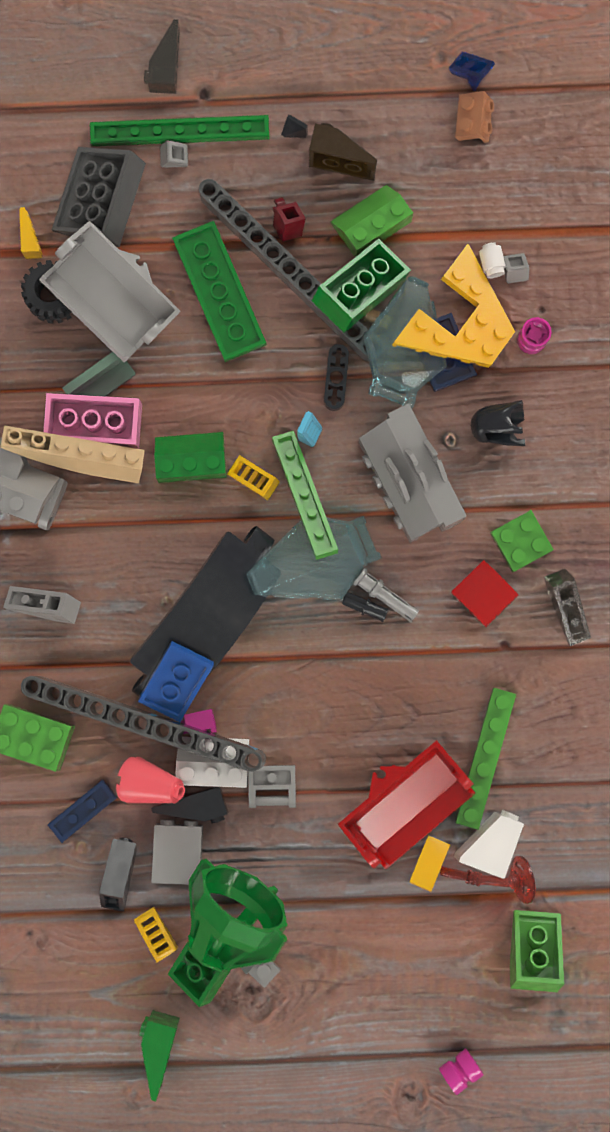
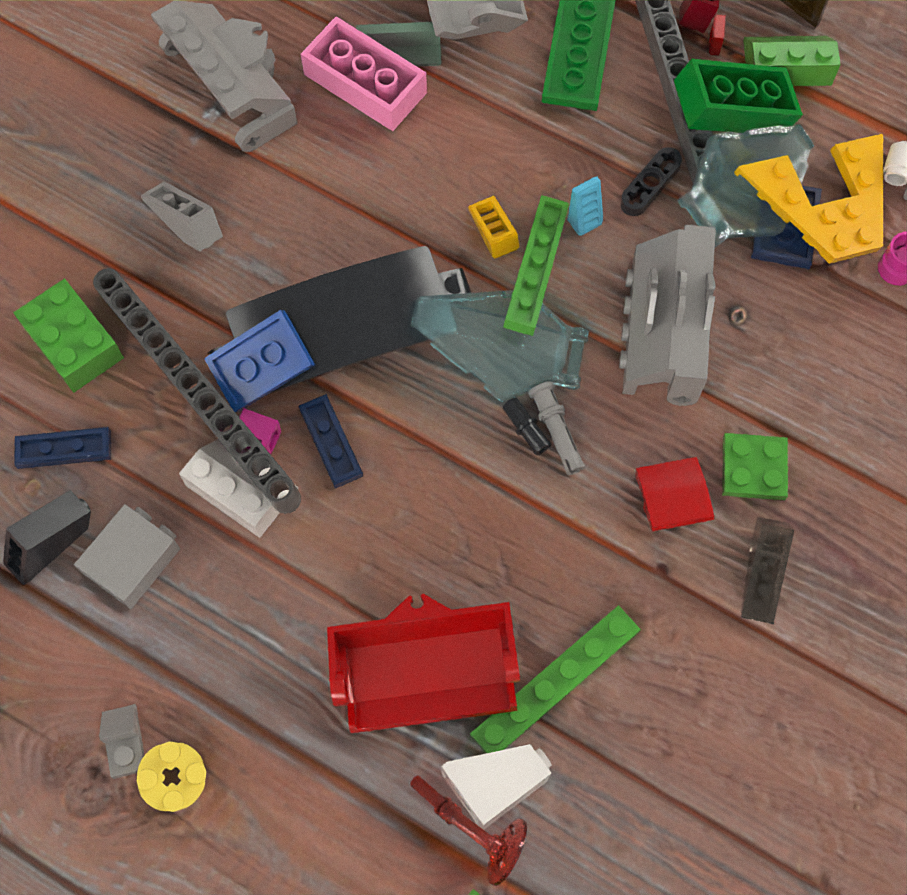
camera: 35 degrees right, 15 degrees down
(75, 454) = (325, 88): tan slope -> none
(147, 783) = (147, 450): coral cone -> none
(158, 956) = (45, 656): yellow slope -> none
(190, 457) = (438, 169): green slope -> none
(198, 806) = (193, 521): black slope -> none
(221, 941) = (102, 672): green plate -> none
(248, 695) = (330, 441): none -> dark blue tile
(271, 778) = (292, 543): light grey plate -> none
(312, 234) = (717, 34): none -> red tile
(313, 964) = (174, 796): none -> light yellow plate
(429, 863) = (405, 759): yellow slope -> none
(499, 424) = (808, 322): black hair -> none

